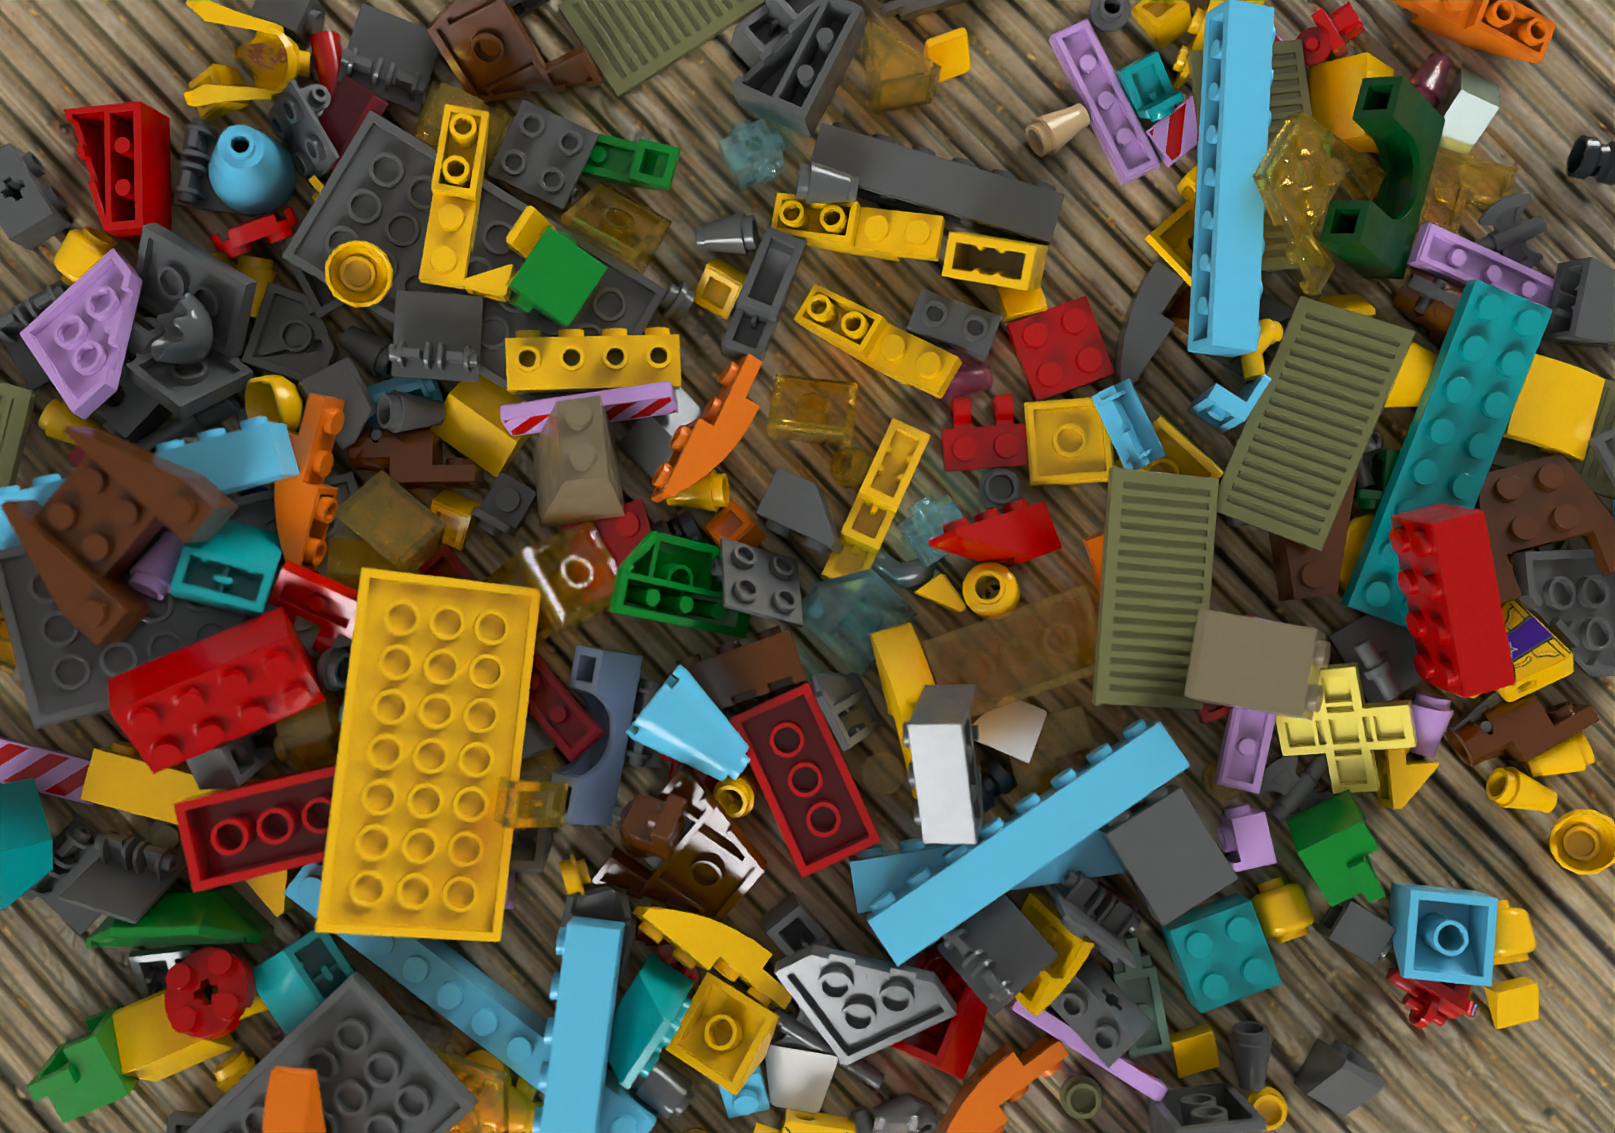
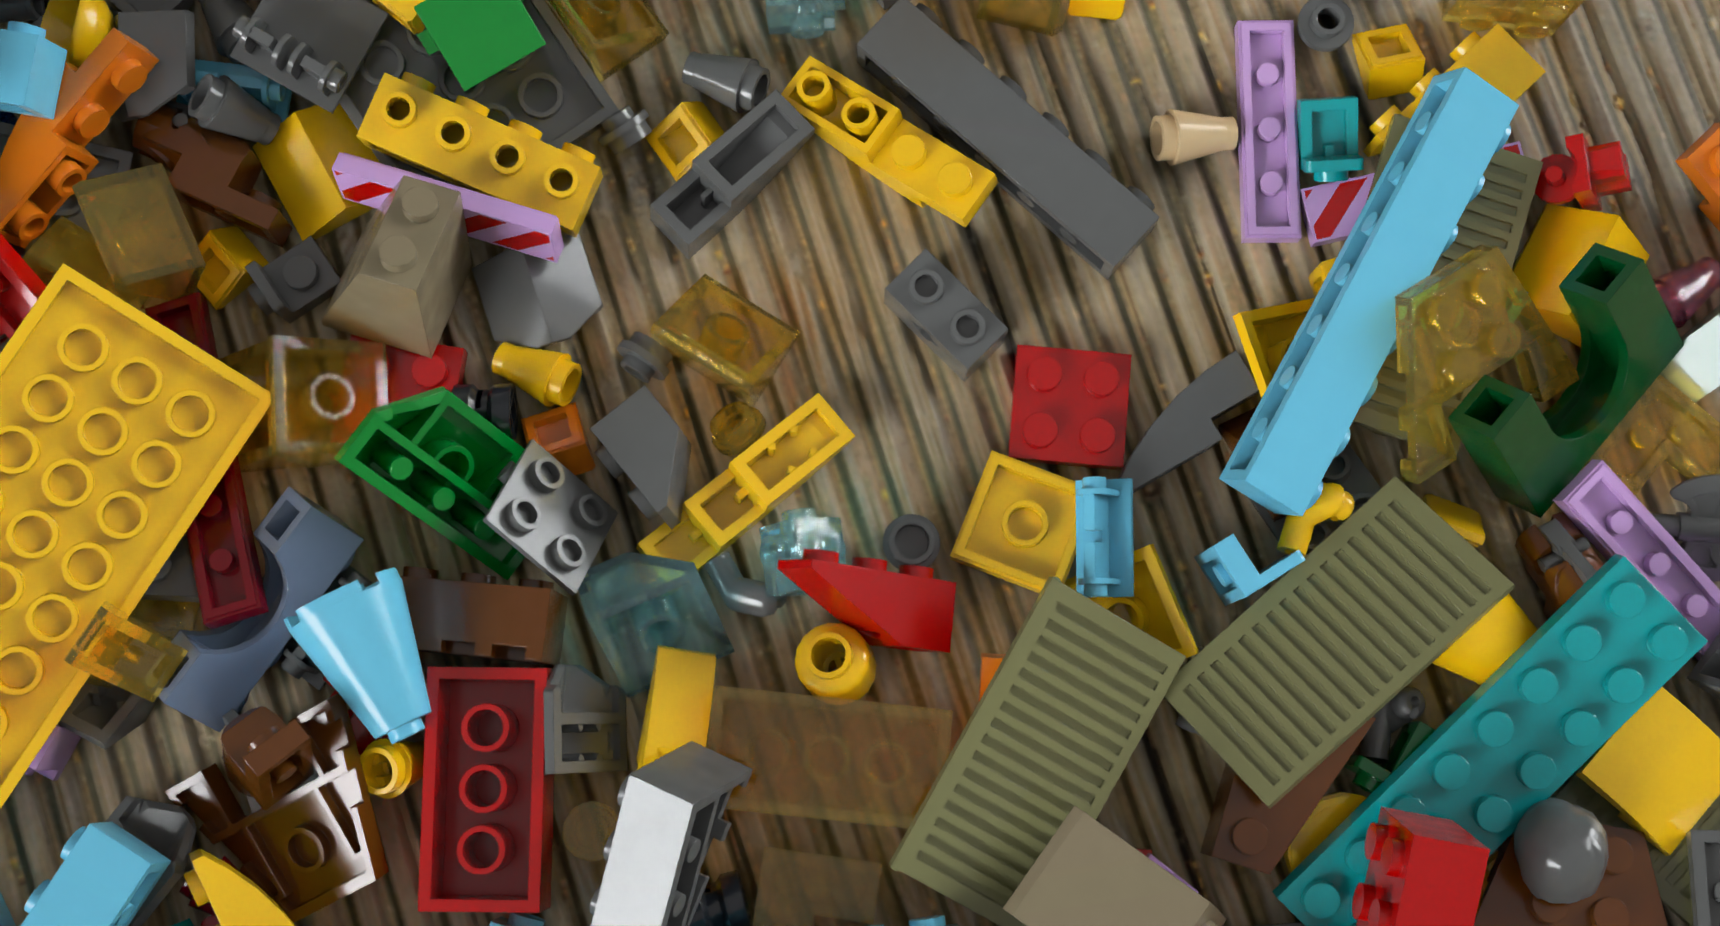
camera: 25 degrees right, 5 degrees down
(574, 874) = (148, 773): yellow plate -> none
(706, 443) = (567, 316): orange slope -> none
(765, 448) = (644, 357): none -> dark grey plate
(825, 184) = (867, 69): dark grey cone -> none
(877, 342) = (844, 291): yellow slope -> none
(942, 593) = (774, 636): yellow slope -> none
(968, 380) = (922, 384): clear pink cone -> none
(984, 446) = (916, 481): red plate -> none
(994, 260) = (1030, 255): yellow brick -> none
(1012, 729) = (777, 850): white sticker -> none
(1018, 303) = (1050, 319): yellow slope -> none
(1517, 490) = (1560, 851): none -> dark grey hair

